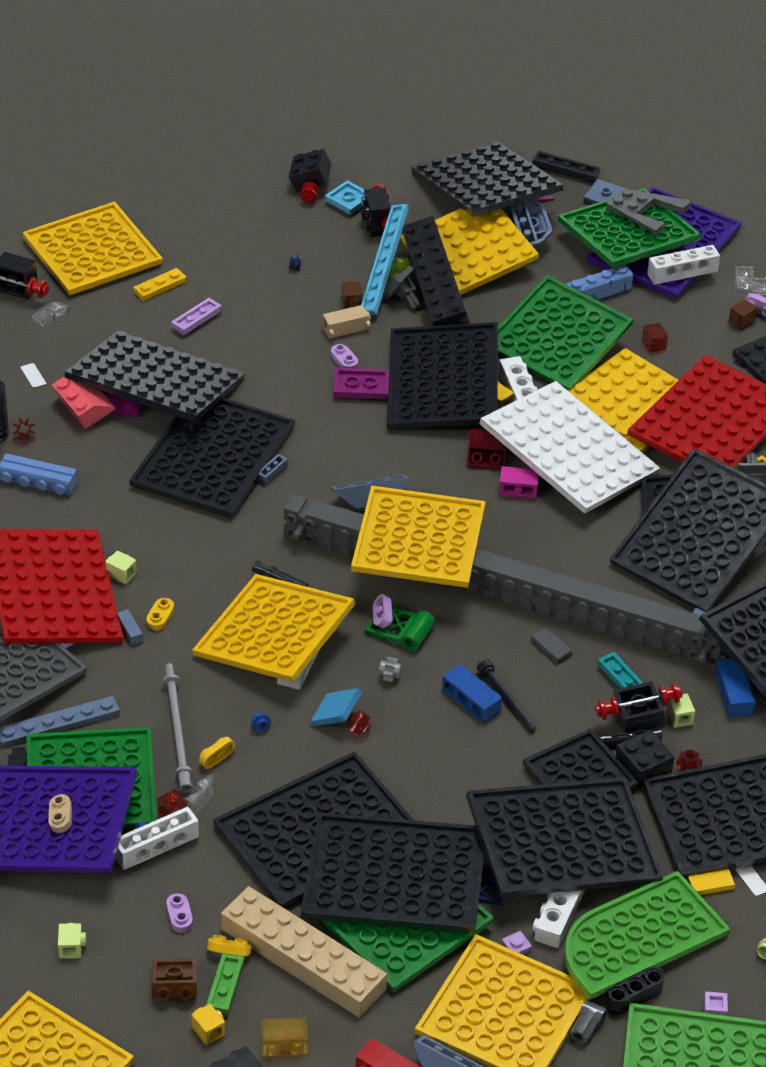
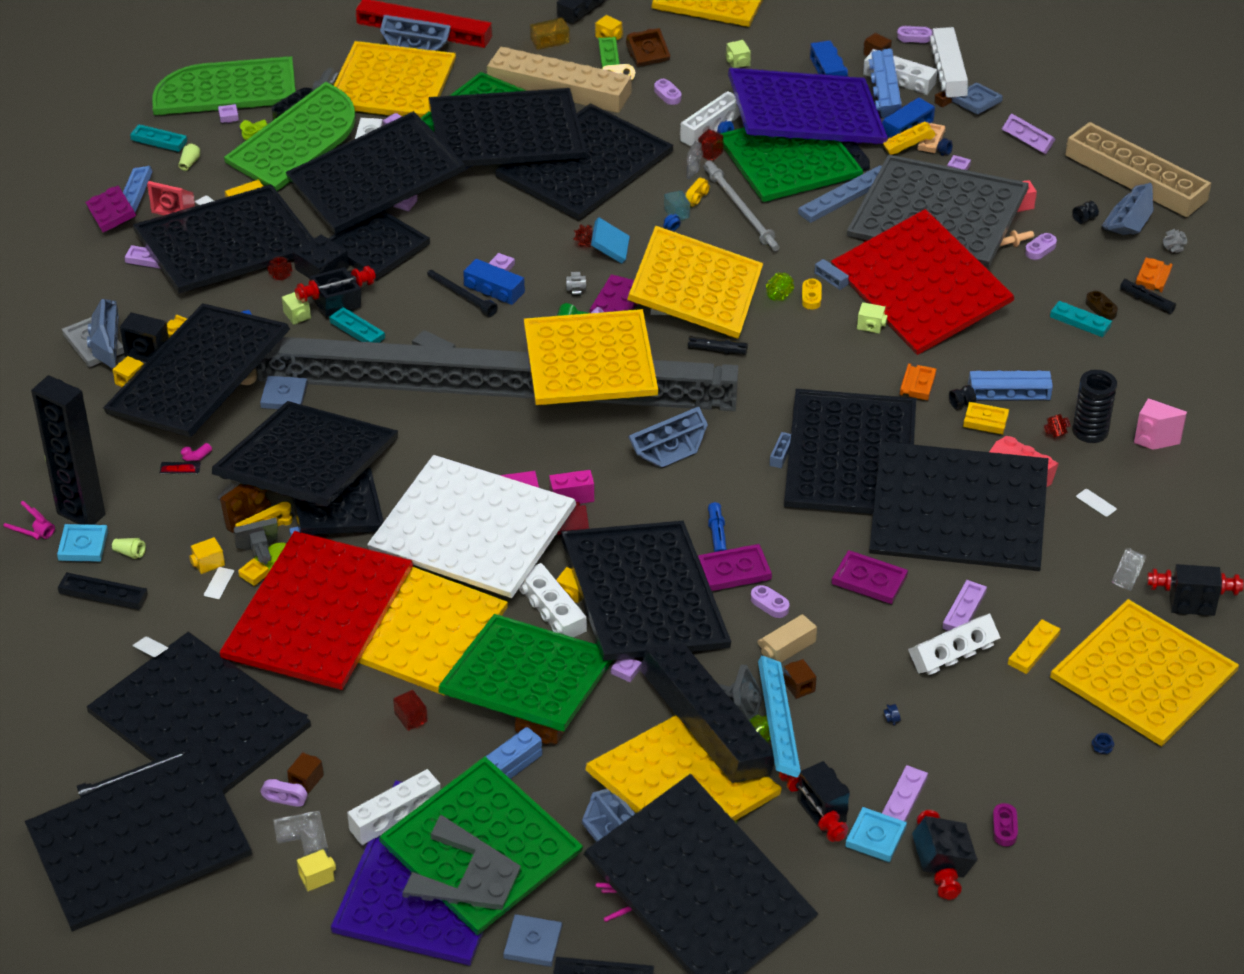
camera: 165 degrees right, 0 degrees up
(60, 808) = (790, 97): tan plate -> none
(78, 454) = (986, 418): none -> yellow plate
(87, 474) = (960, 397): none -> black wheel
(115, 499) = (918, 381): none -> orange plate
(156, 214) = (1103, 743): none -> dark blue plate
(189, 619) = (780, 286): none -> clear neon green head
(223, 286) = (924, 653): none -> white brick
(246, 739) = (677, 204): none -> clear light blue brick
(256, 353) = (869, 577): none -> magenta plate
(257, 184) = (1005, 824): none -> magenta plate
(315, 217) = (905, 793): none -> lavender plate
(352, 653) = (614, 295): none -> magenta plate
(359, 419) = (716, 523): none -> blue pin
(455, 722) = (503, 262): none -> lavender plate
(471, 469) = (575, 485): none -> dark pink brick
(683, 975) = (249, 129): none -> lime plate
(745, 255) = (316, 869): none -> light yellow brick

